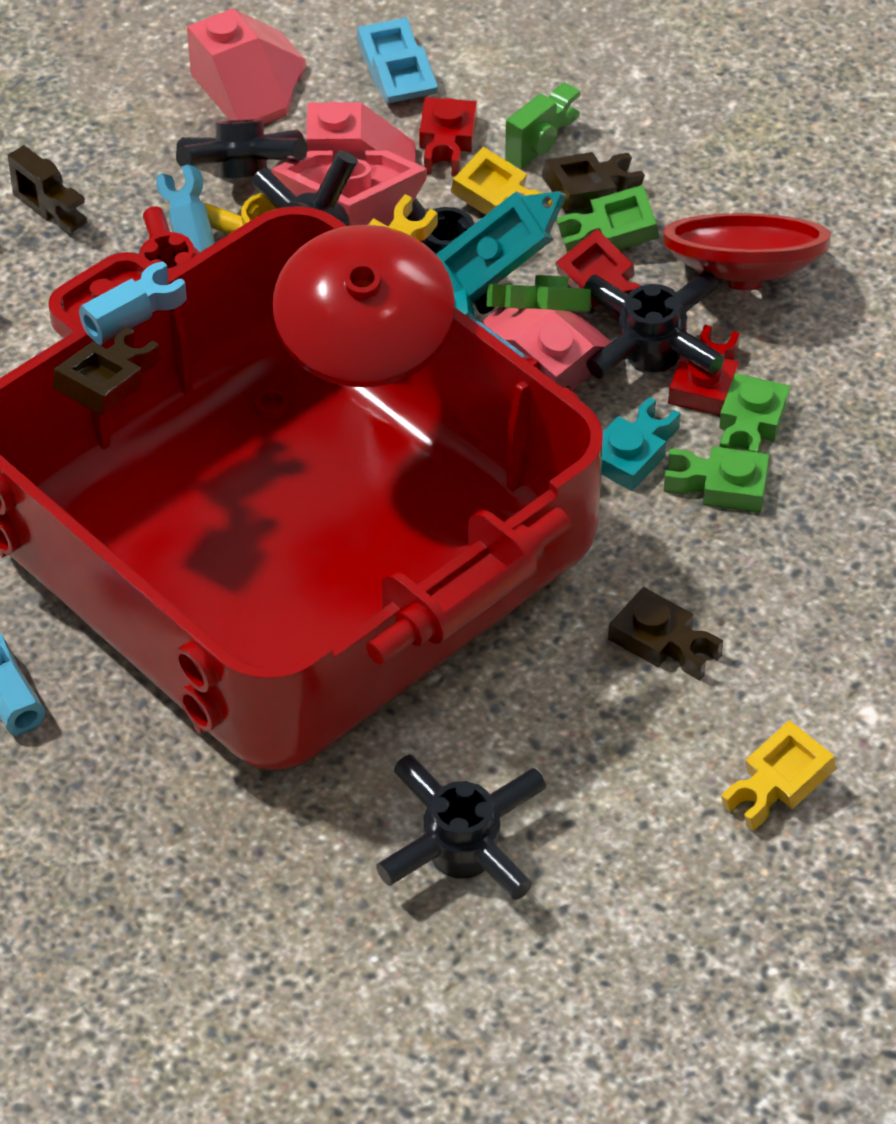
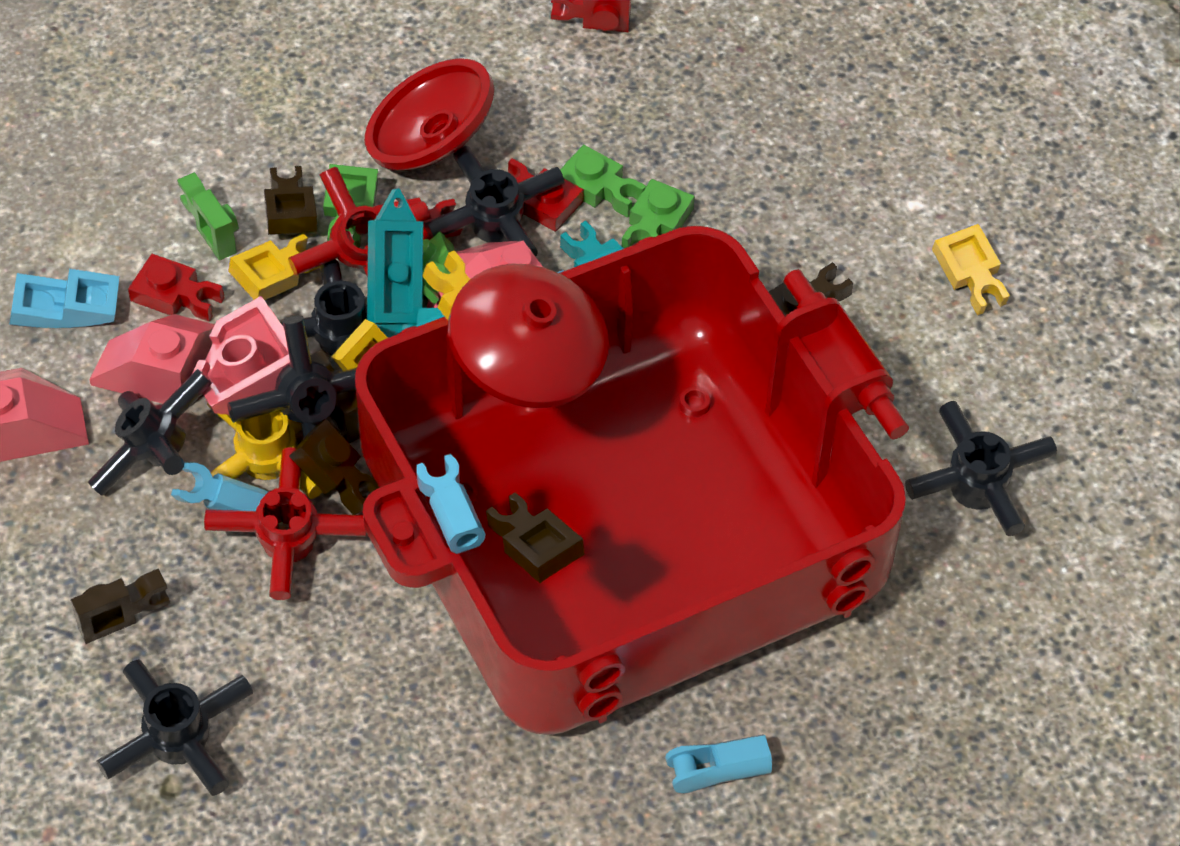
camera: 75 degrees left, 5 degrees up
(567, 228) = (340, 242): none -> red bar

